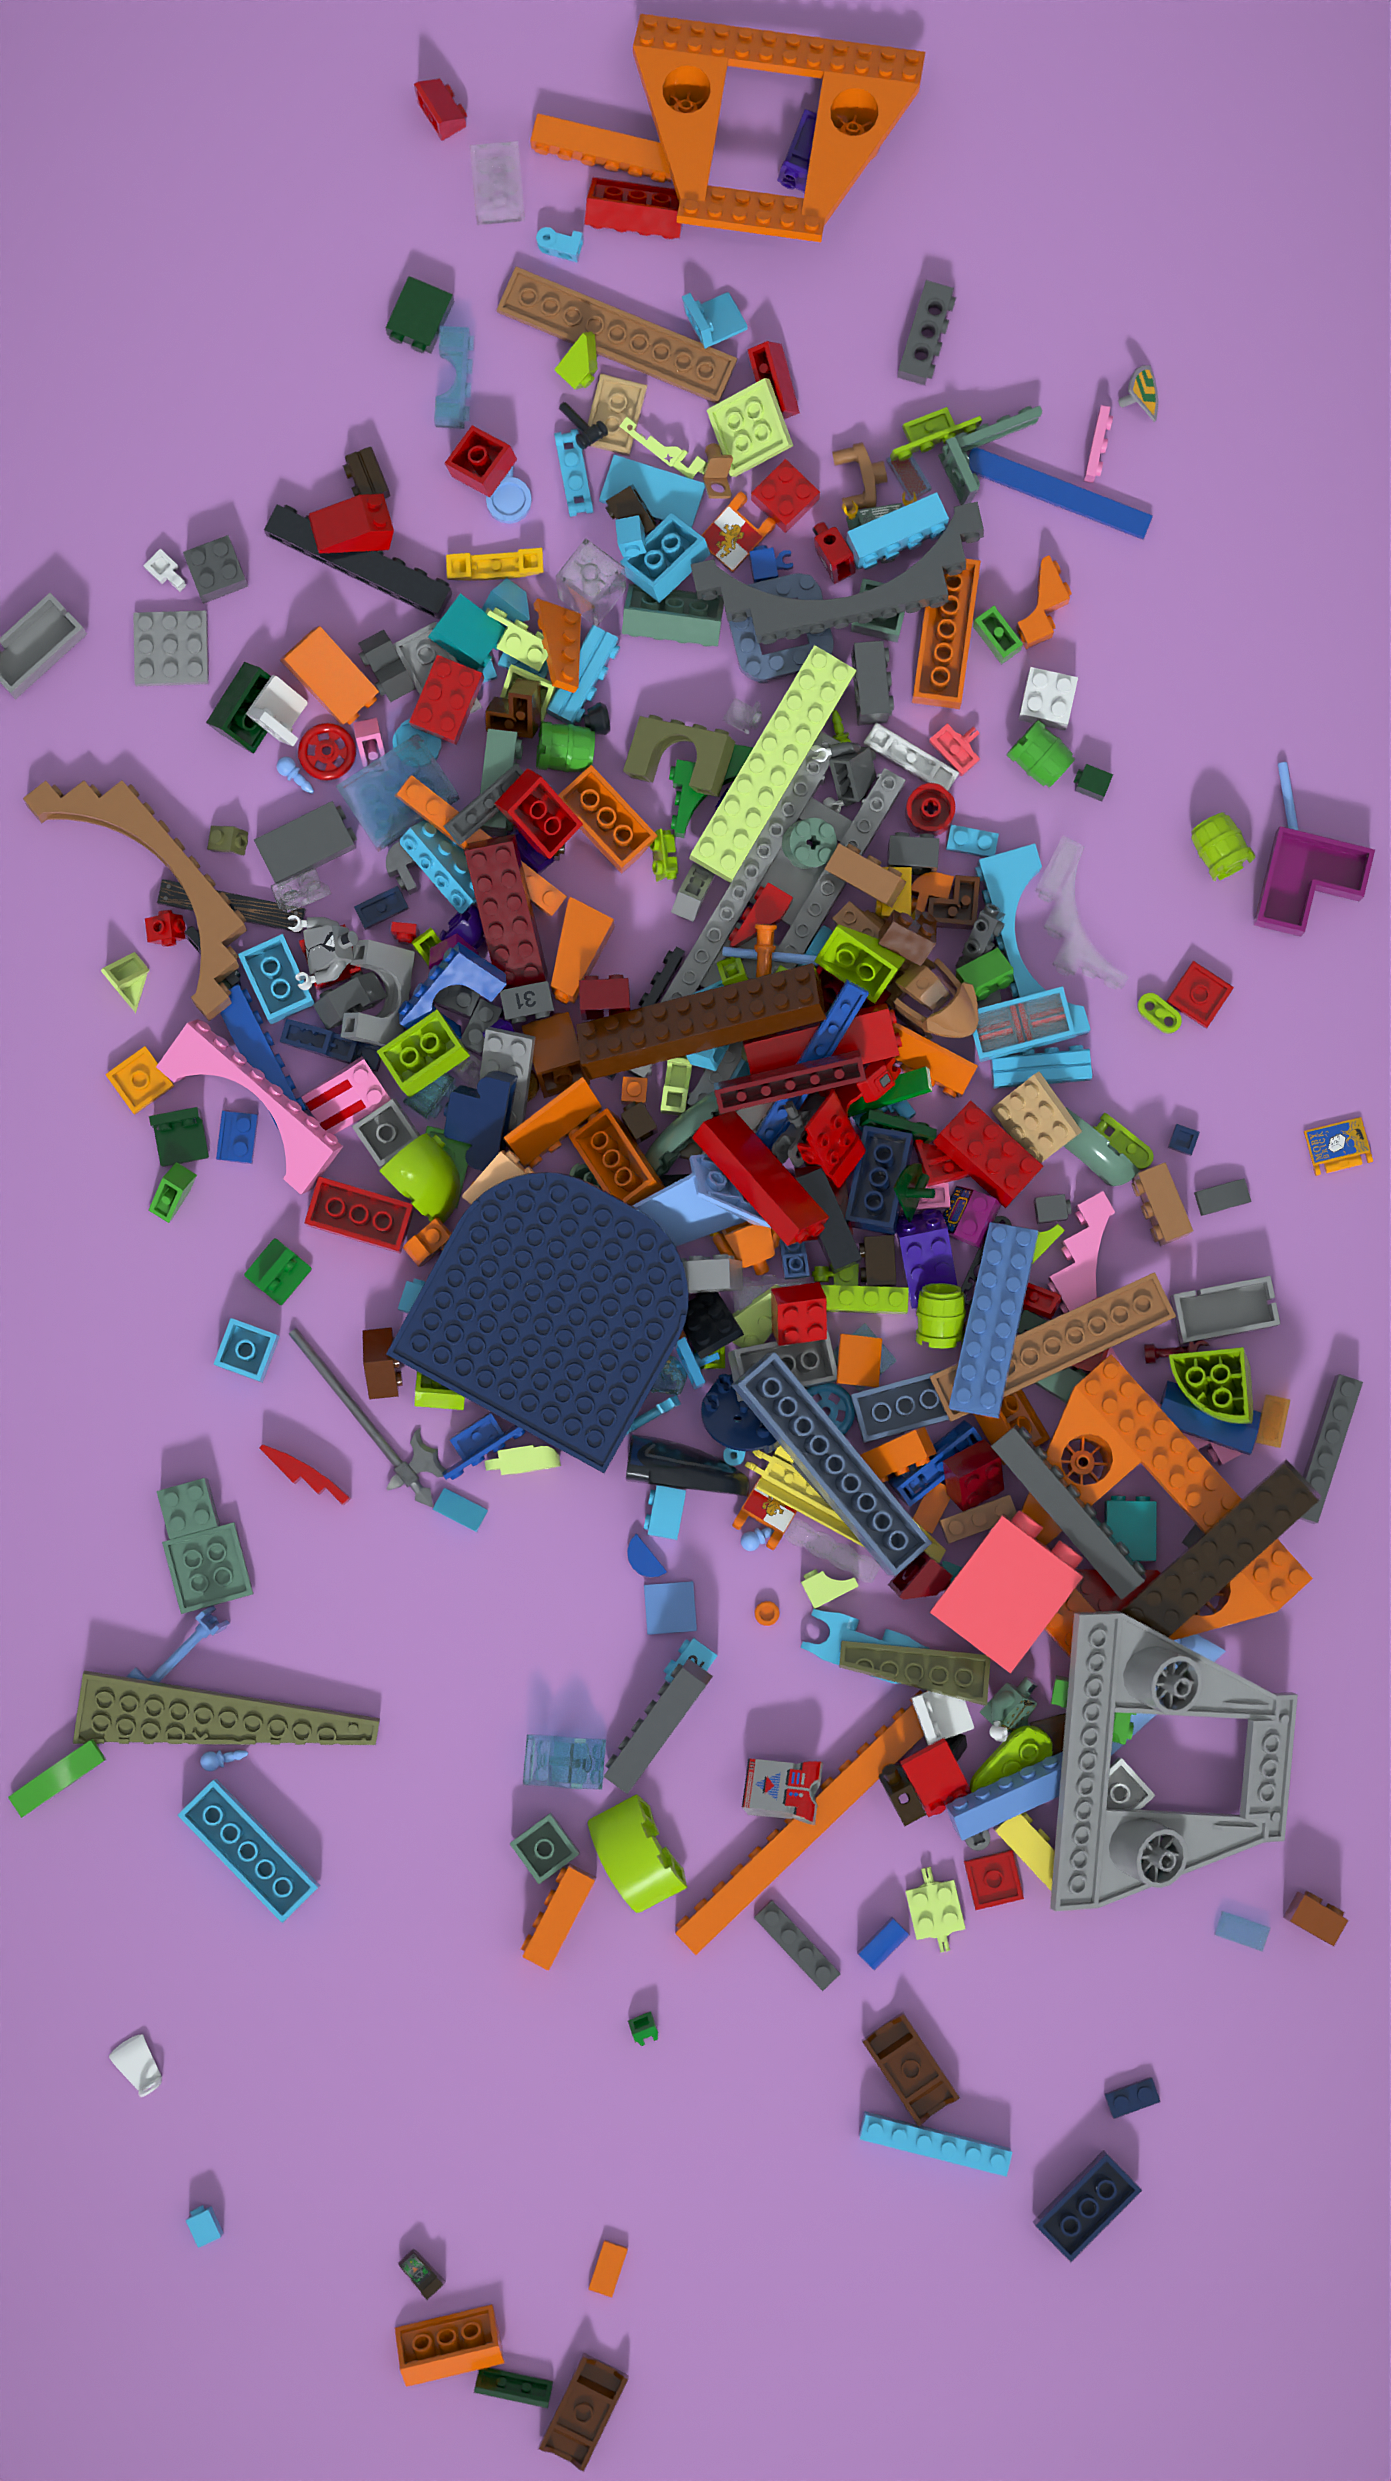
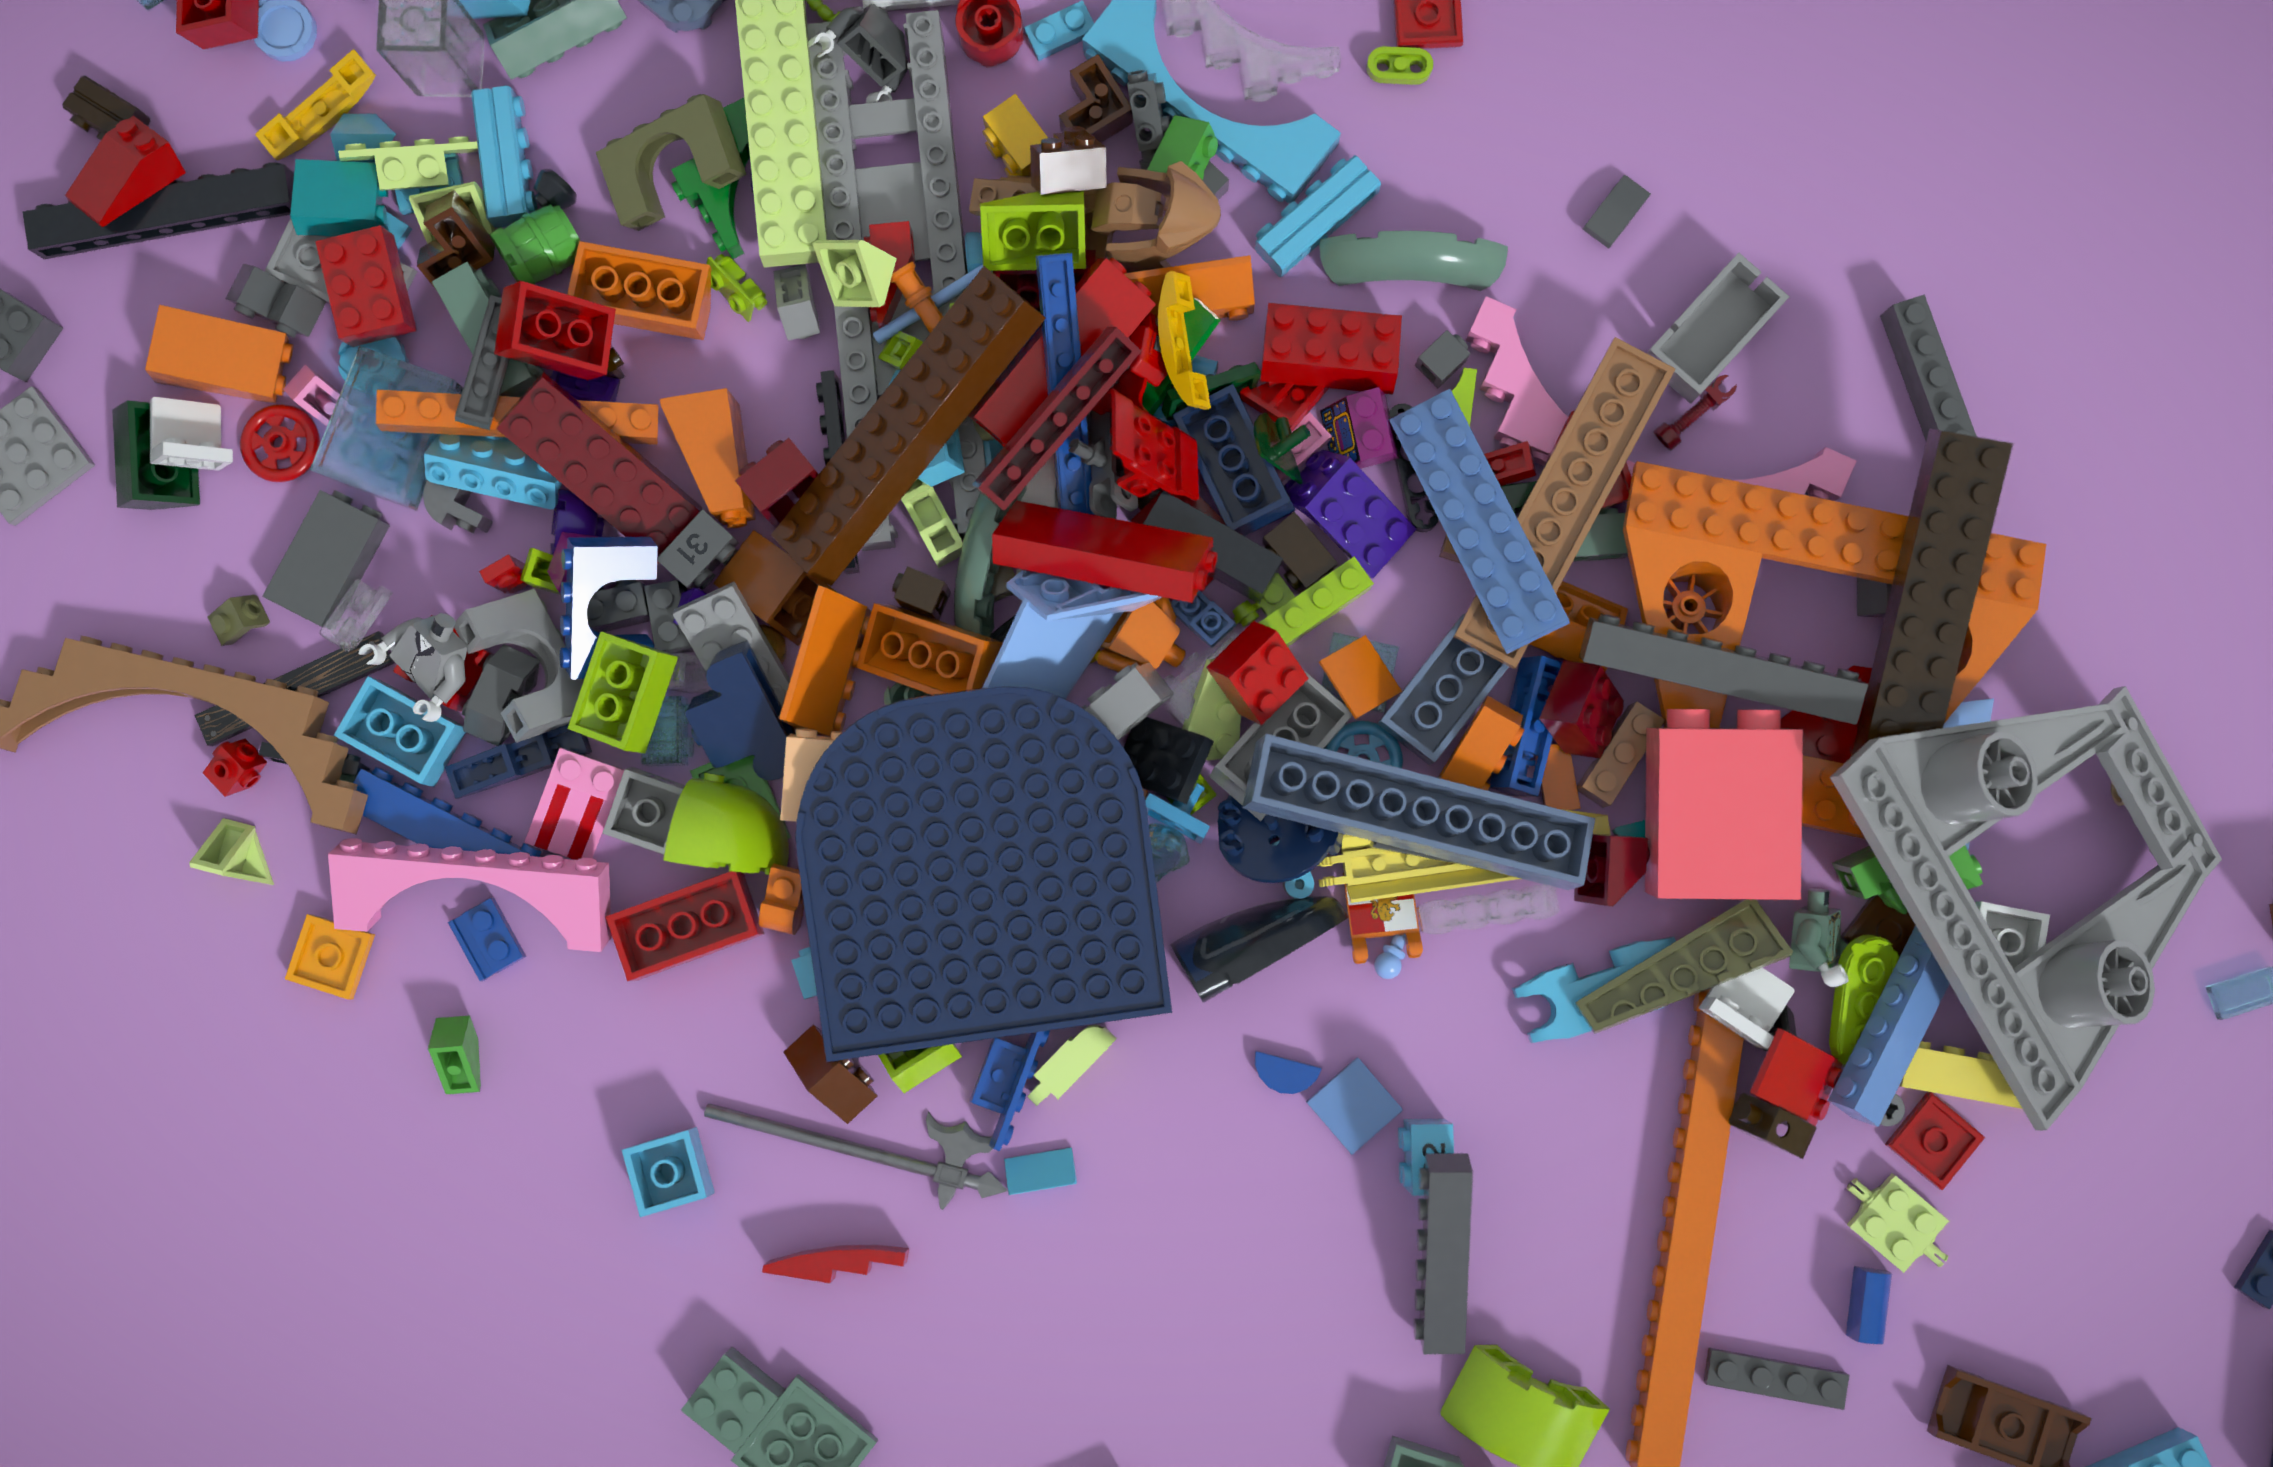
camera: 30 degrees left, 0 degrees up
(180, 1136) = (419, 985): dark green bracket -> none
(278, 1271) = (641, 1056): green bracket -> none
(287, 767) = (247, 491): light blue bar -> none
(381, 907) = (462, 568): dark blue plate -> none
(562, 641) = (448, 131): orange wing -> none
(564, 1762) = (1367, 1371): clear light blue bracket -> none
(634, 1090) = (889, 562): orange brick -> none
(660, 1408) = (1177, 900): medium azure bar -> none
(666, 1512) = (1273, 1005): medium azure brick -> none
(737, 908) = (855, 272): none -> yellowish green slope
(744, 716) = (714, 74): clear bracket -> none
(766, 1613) = (1465, 1031): orange tile -> none
(782, 1789) = (1635, 1218): piece -> none
(803, 855) = (898, 152): sand green brick -> none
(823, 1589) = (1510, 958): yellowish green arch -> none
(866, 874) = (970, 135): medium nougat brick -> none
(893, 1086) = (1174, 301): none -> yellow slope
(914, 852) = (1007, 74): dark grey brick -> none
(930, 885) = (1052, 102): orange brick -> none
(941, 1315) = (1414, 561): lime piece -> none
(1023, 1024) = (1267, 174): clear brick -> none
(1036, 1118) = (1356, 267): tan plate -> none
(1126, 1142) = (1470, 226): lime plate -> none
(1134, 1525) = (1793, 631): teal brick -> none
(1161, 1204) = (1561, 263): medium nougat brick -> none
(1183, 1139) = (1528, 180): dark blue plate -> none
(1203, 1426) = (1790, 454): blue slope -> none
(1217, 1383) = (1774, 409): lime brick -> none
(1272, 1421) = (1854, 412): clear yellow plate -> none
(1338, 1145) = (1696, 68): piece -> none

